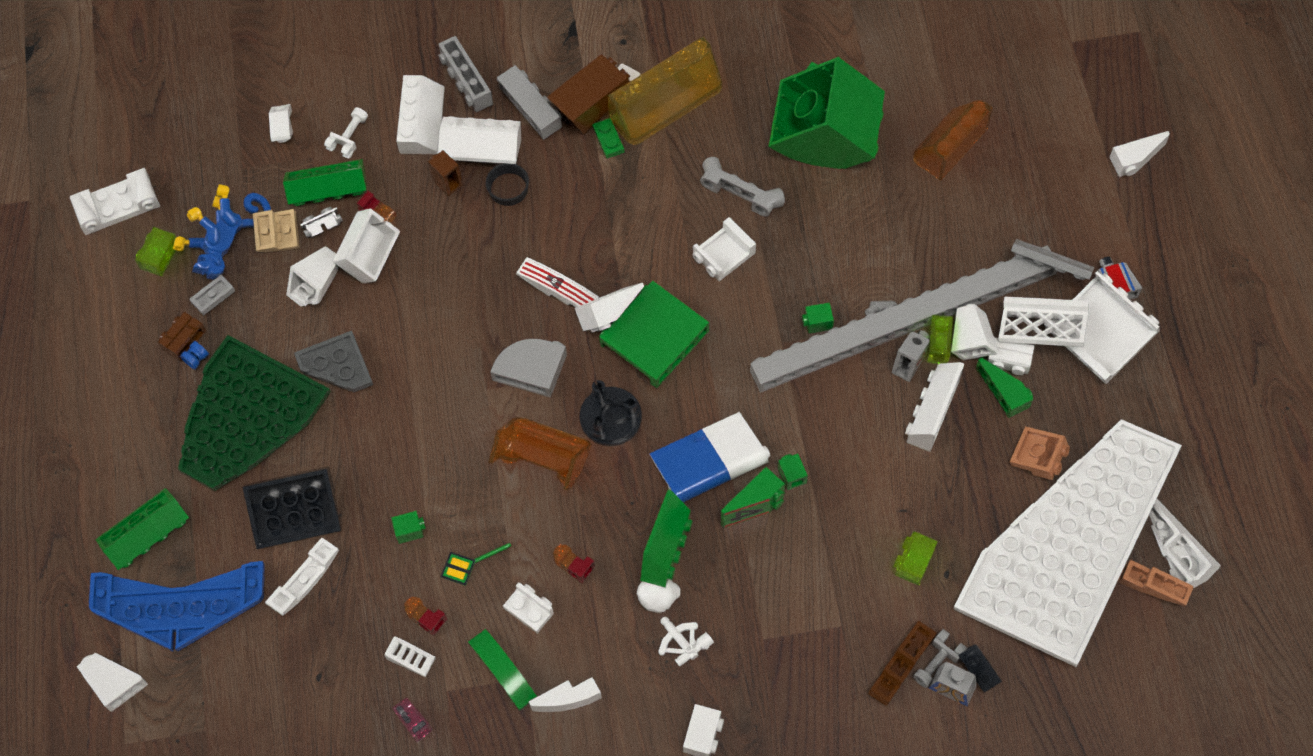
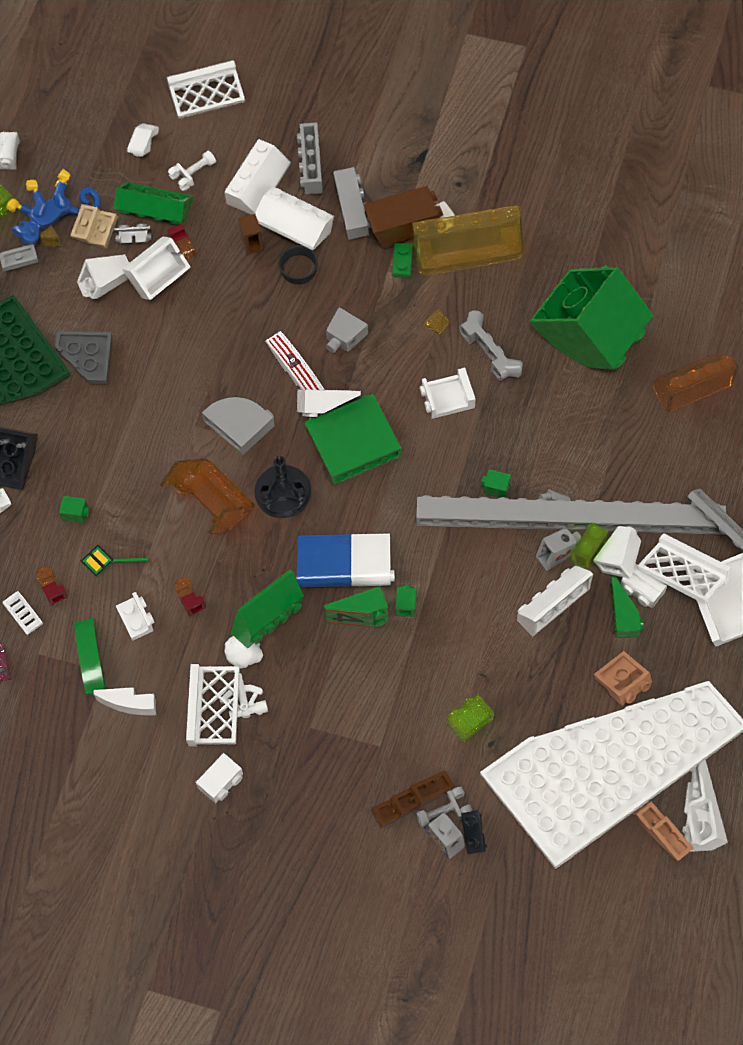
camera: 25 degrees right, 0 degrees up
(236, 261) = (50, 238): none -> clear yellow slope
(308, 37) = (201, 76): none -> white fence
(590, 231) = (345, 331): none -> light grey torso
(642, 674) = (195, 705): none -> white fence
(674, 185) = (437, 322): none -> clear yellow slope

